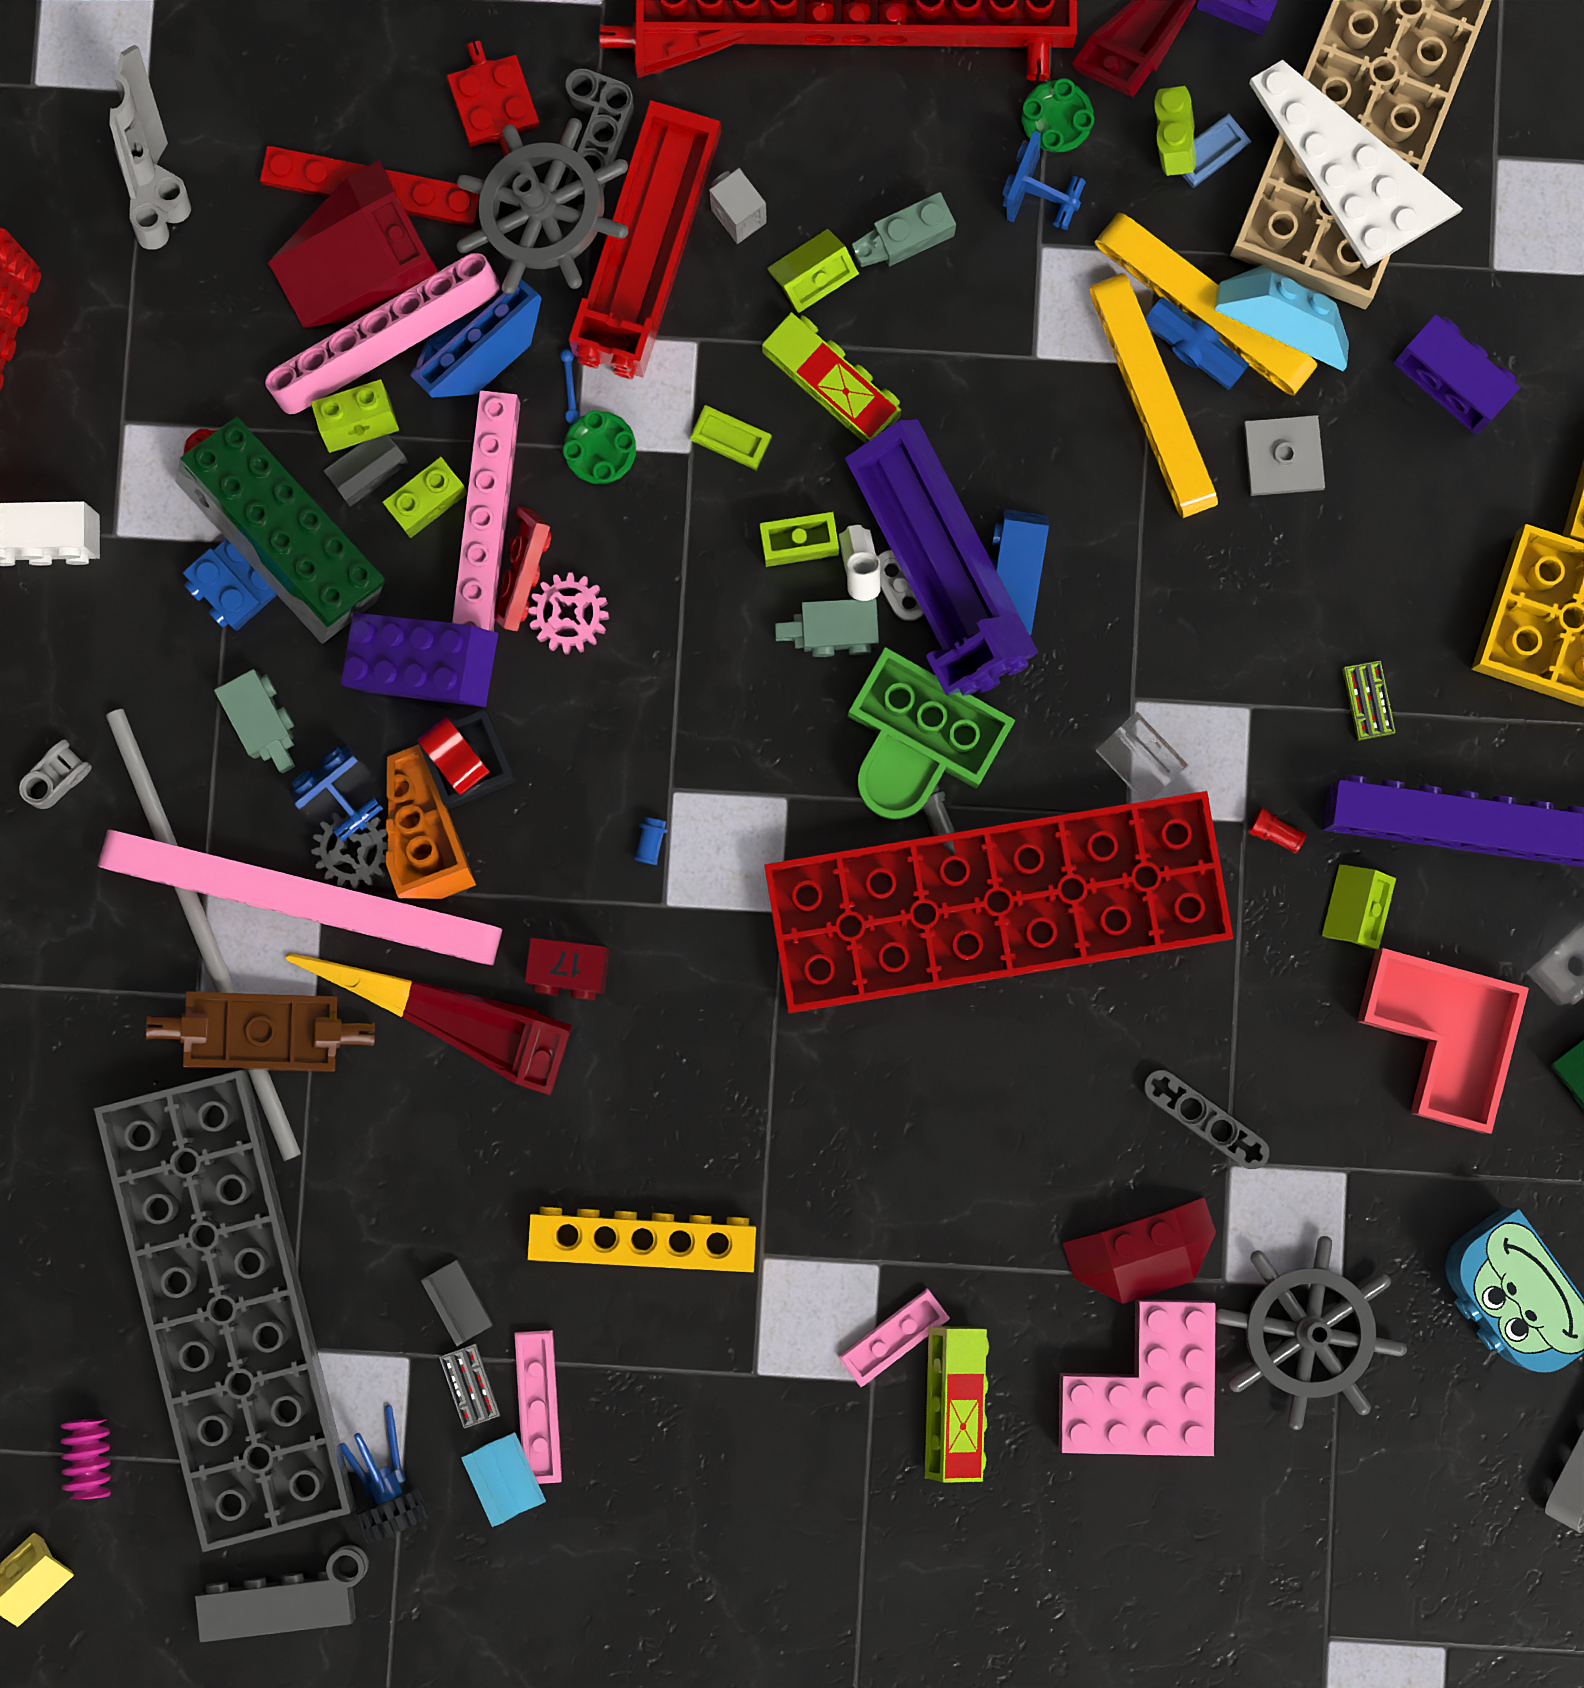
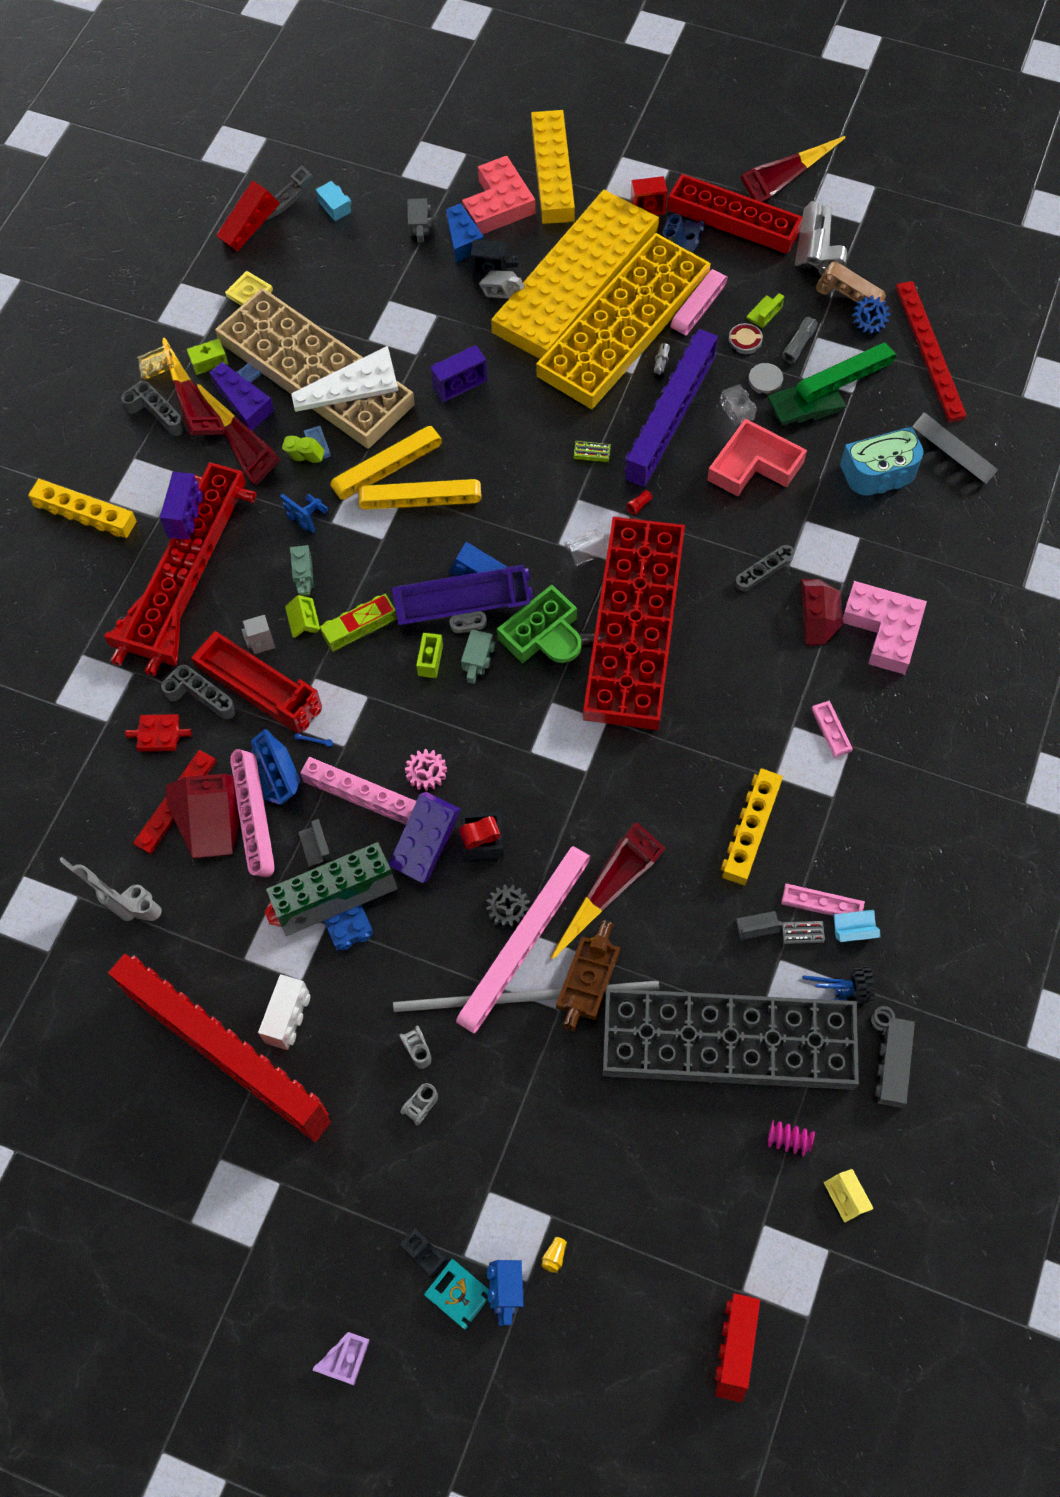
camera: 70 degrees left, 20 degrees down
(257, 719) = (424, 933): sand green hinge -> none
(310, 784) = (466, 902): blue plate -> none
(355, 416) = (288, 838): lime brick -> none
(422, 841) = (515, 868): orange wedge -> none
(425, 497) = (342, 818): lime brick -> none
(525, 555) = (389, 777): red wing -> none
(541, 206) = (221, 717): dark grey piece -> none
(567, 967) = (603, 817): dark red brick -> none
(600, 447) = (349, 733): green dish -> none
(650, 840) = (552, 766): blue pin -> none
(730, 437) = (367, 675): lime tile -> none
(860, 563) = (453, 630): white piece -> none
(956, 1404) = (872, 707): lime brick -> none
(1058, 113) = (269, 496): green dish -> none
(1195, 343) = (403, 470): blue piece -> none
(1284, 455) = (468, 453): light grey plate -> none
(1286, 313) = (404, 427): medium azure wedge -> none
(1310, 1332) = (878, 550): dark grey piece -> none
(1359, 906) = (684, 480): lime panel -> none

